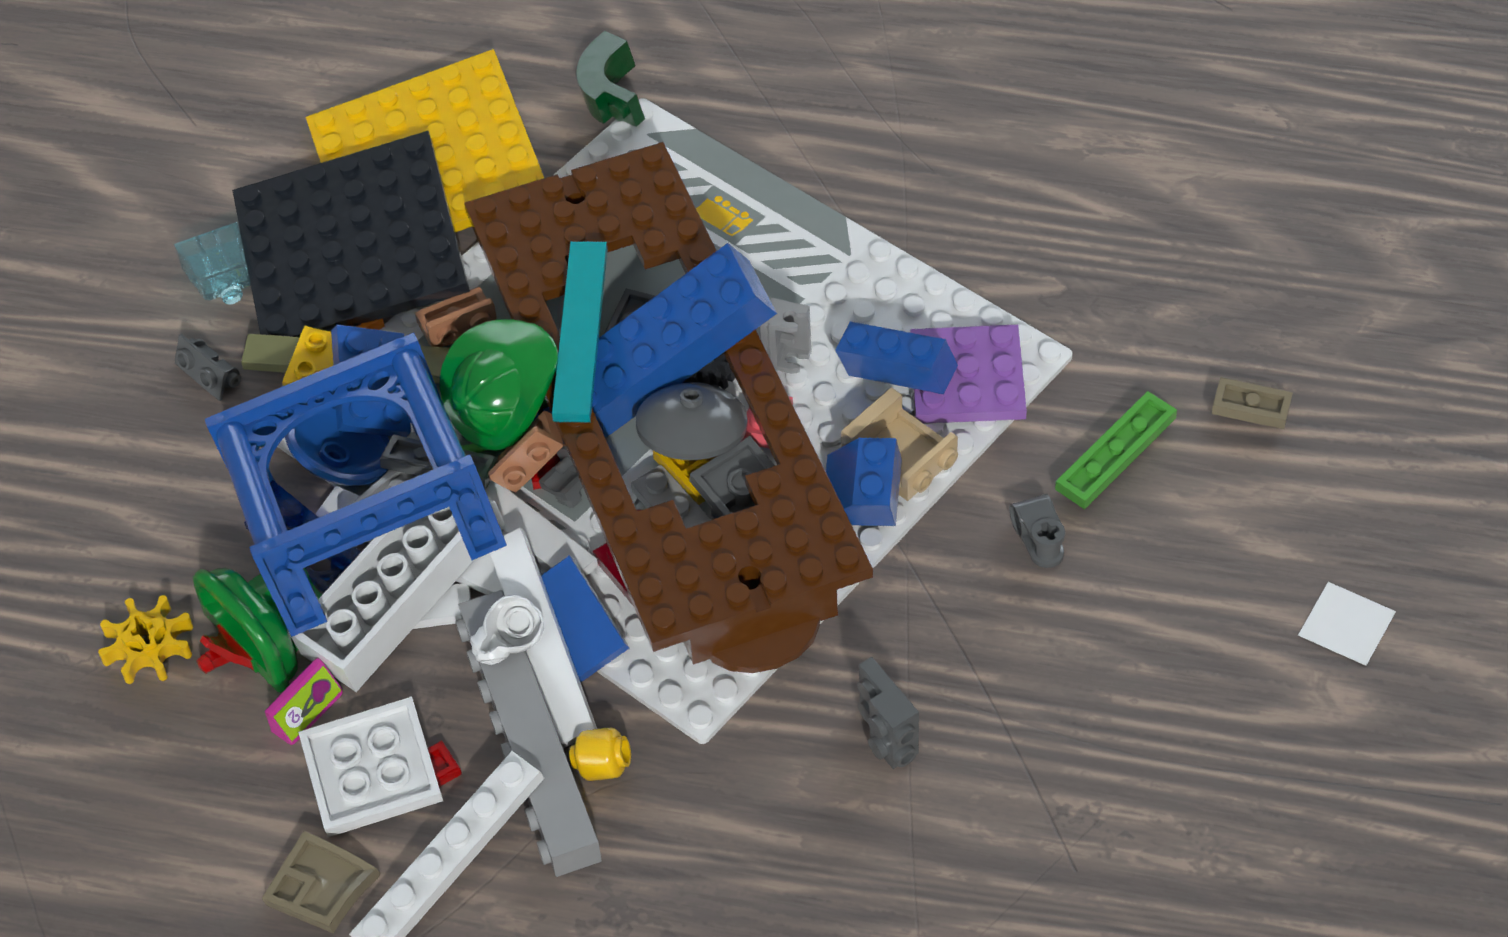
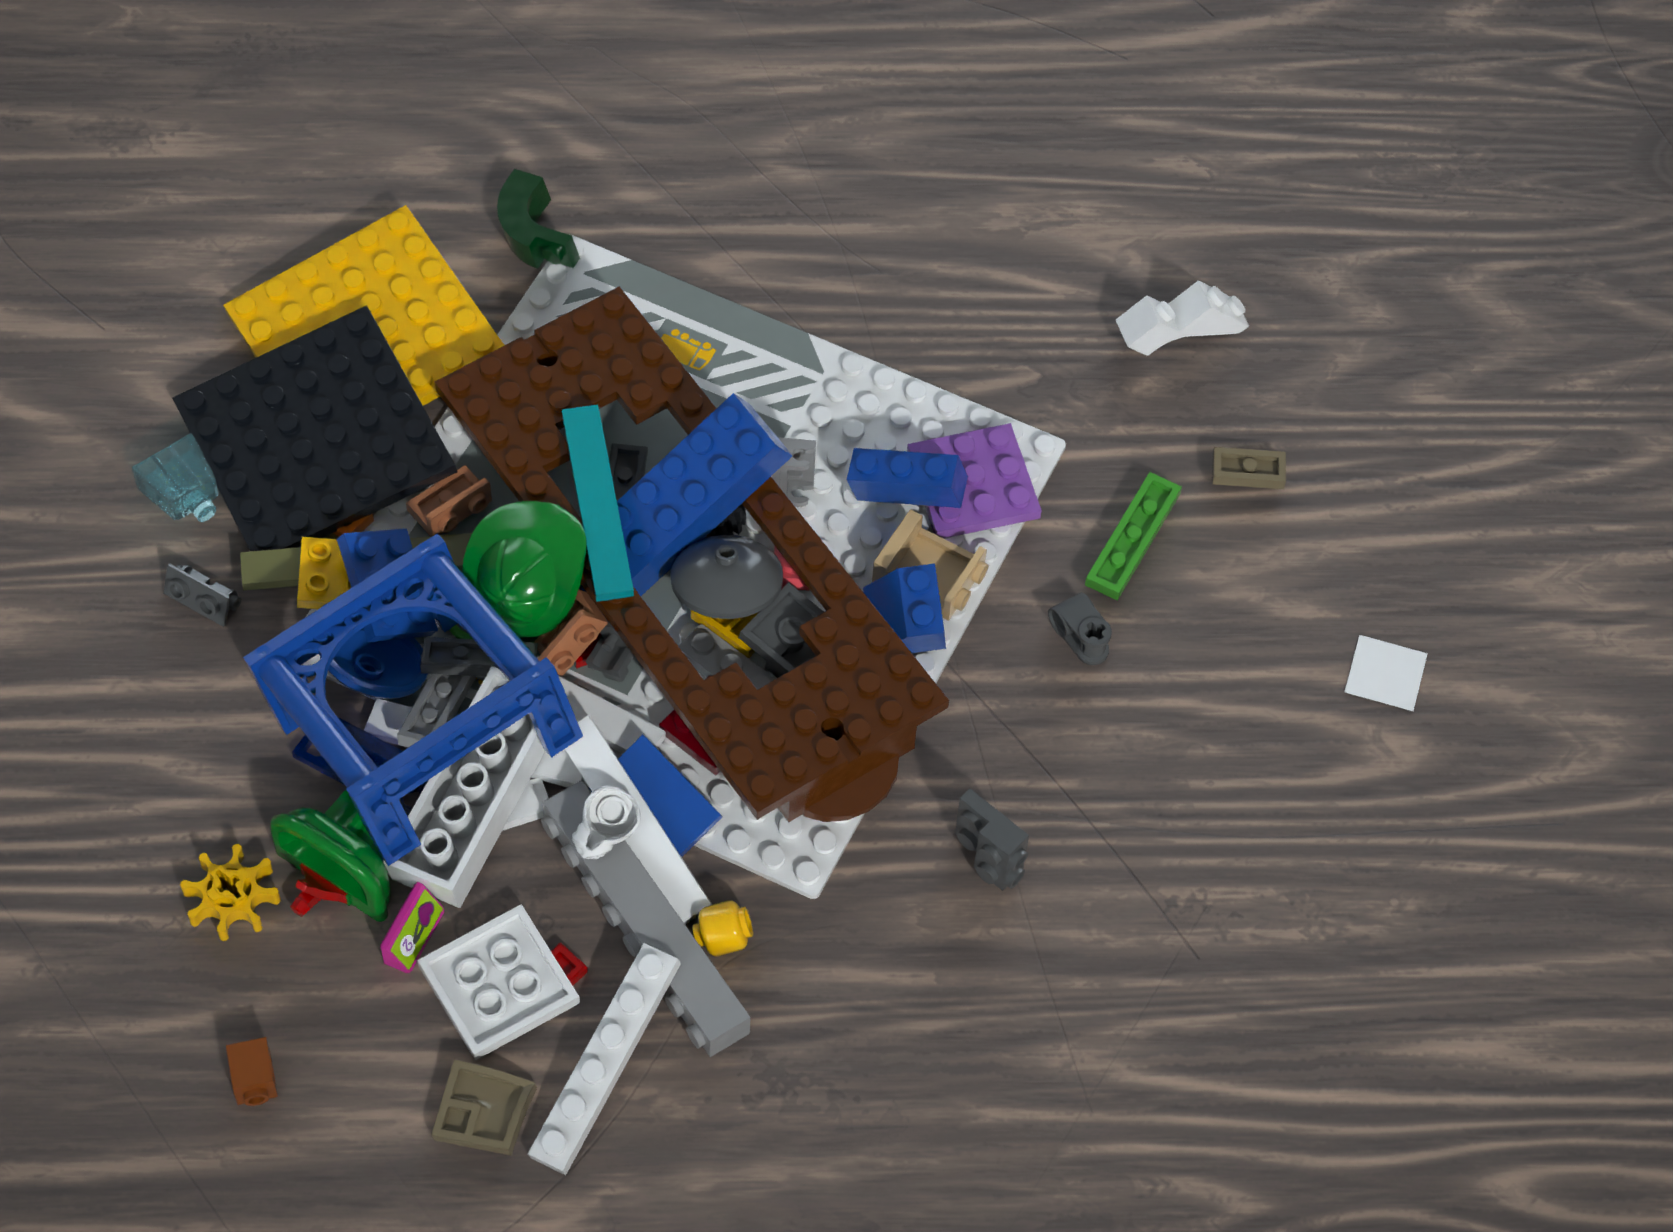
camera: 20 degrees left, 5 degrees up
(113, 807) = (251, 1071): none -> dark orange brick
(1232, 247) = (1195, 312): none -> white arch

